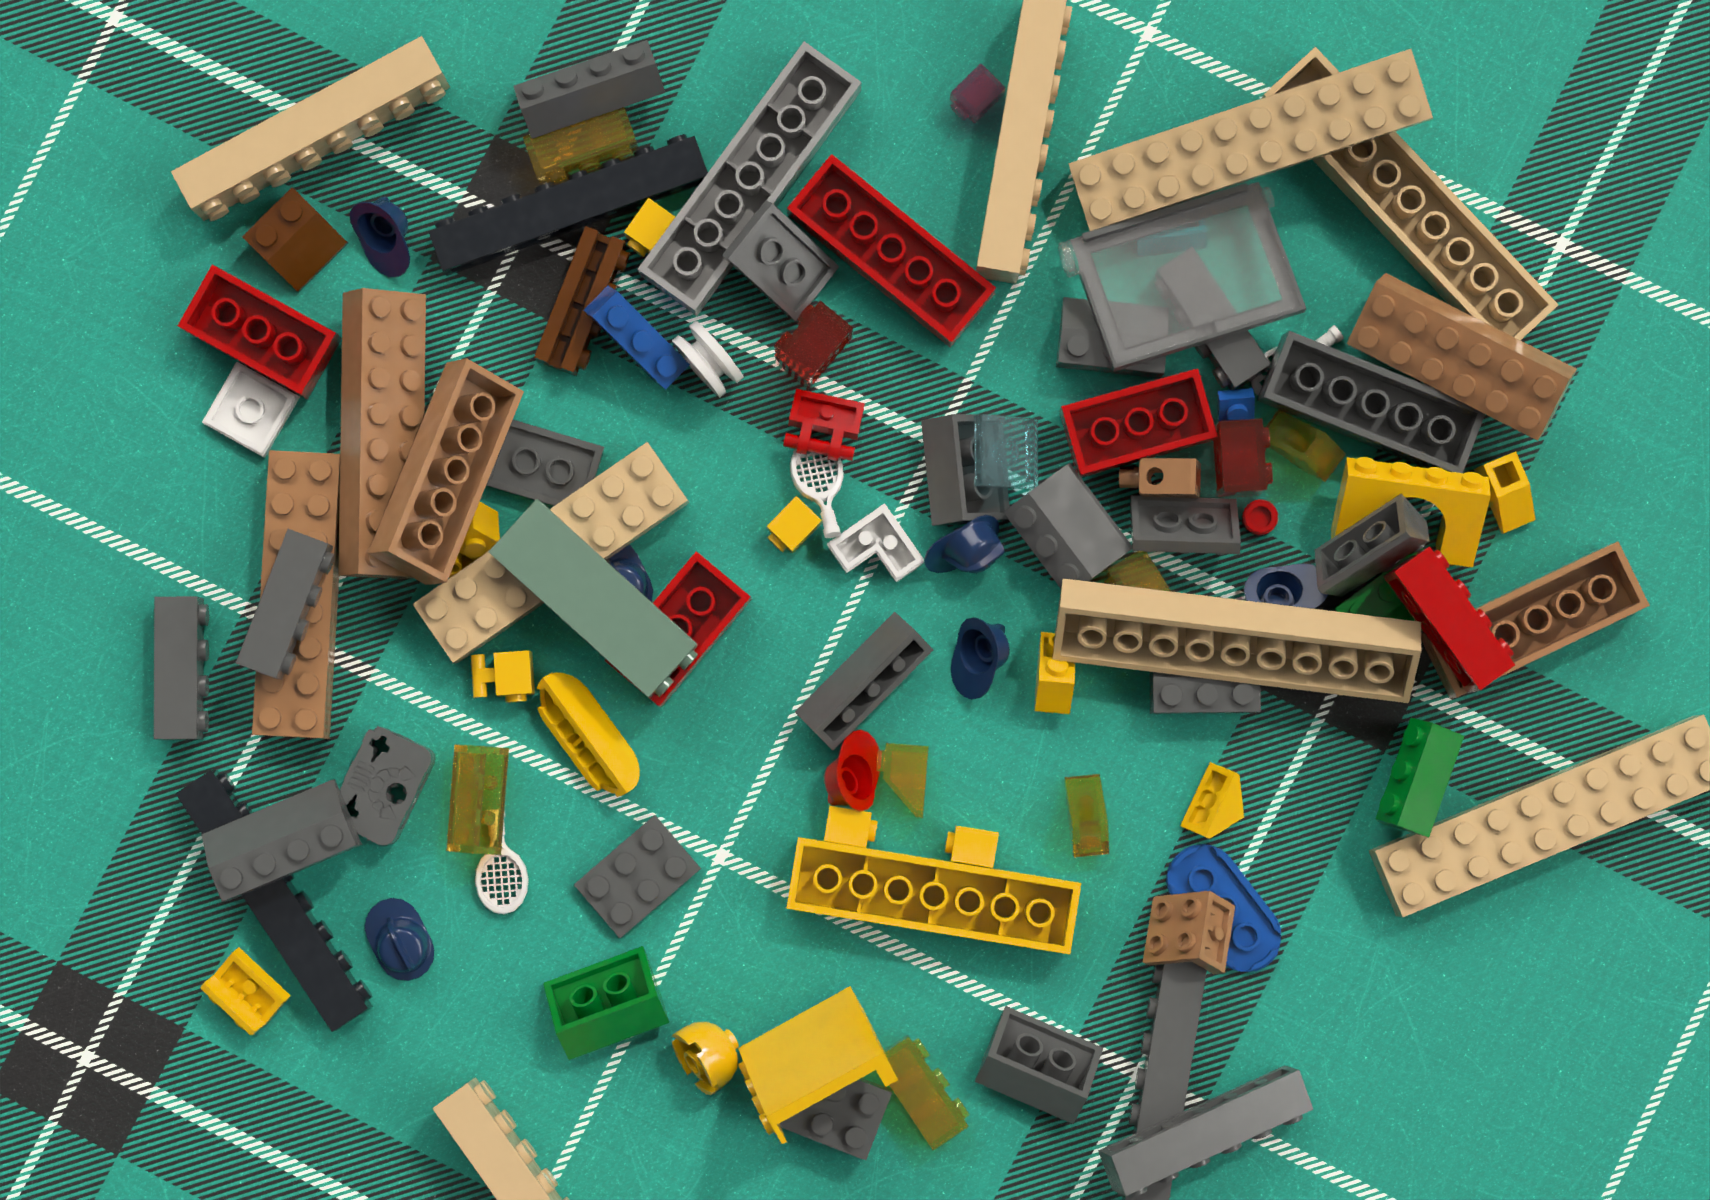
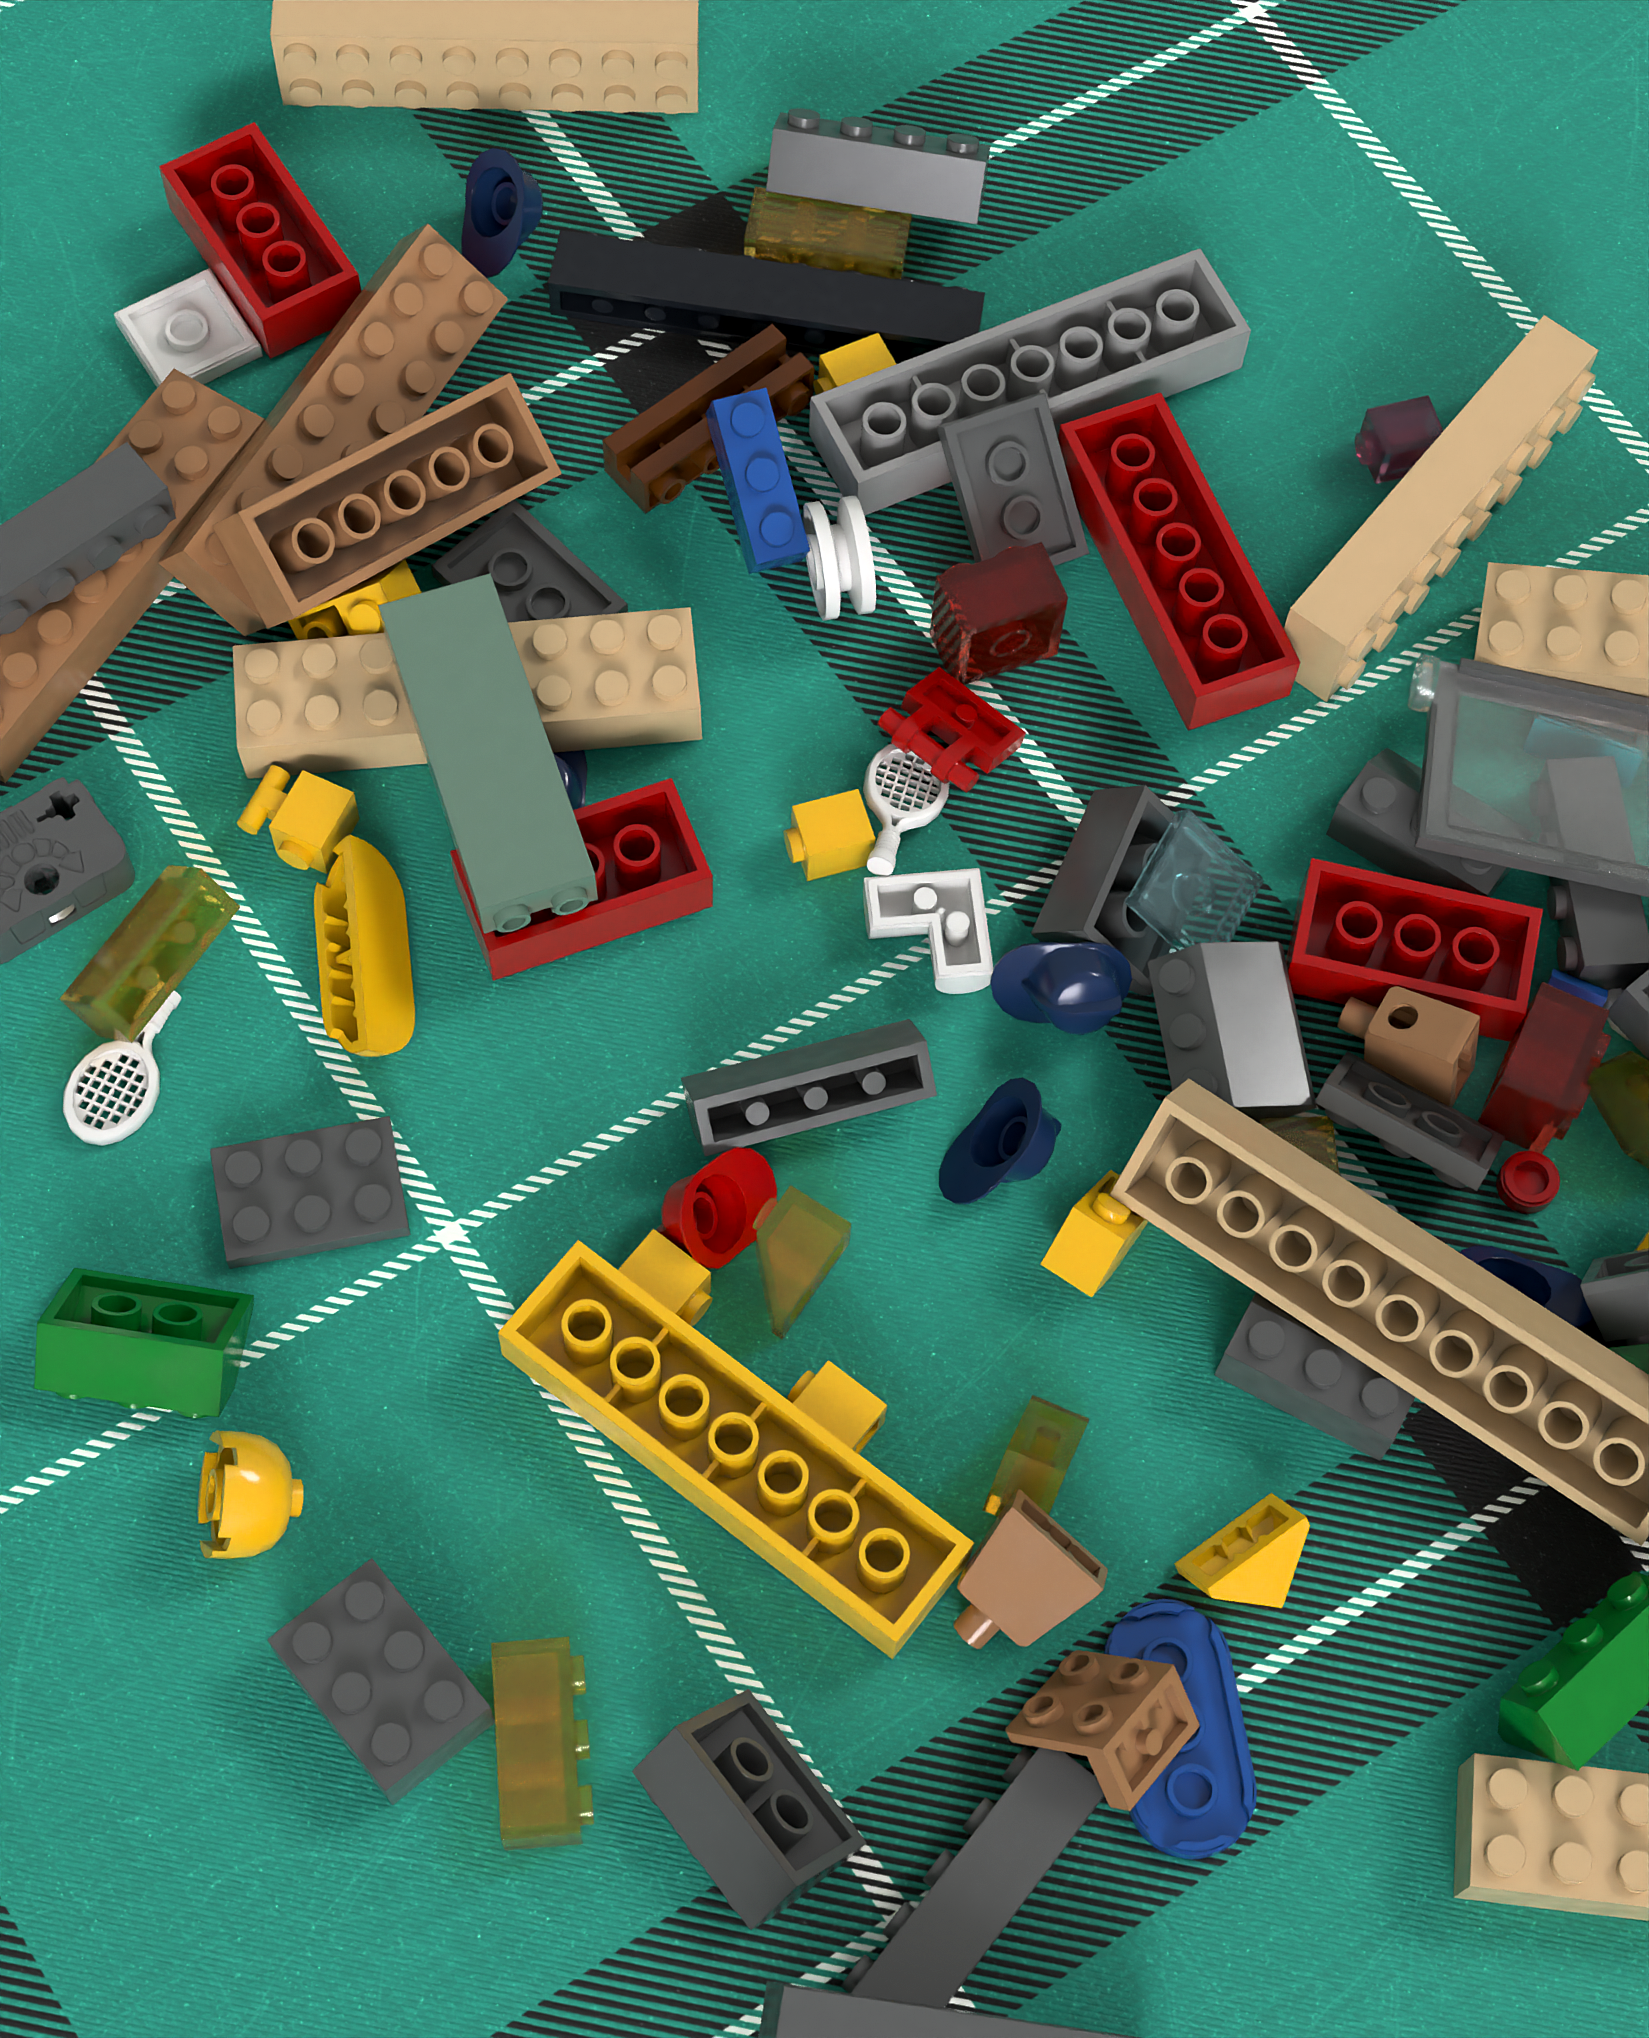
camera: 25 degrees right, 20 degrees down
(295, 239) = (381, 166): reddish brown slope -> none
(811, 1059) = (396, 1565): yellow panel -> none
(1114, 880) = (1025, 1577): none -> medium nougat torso

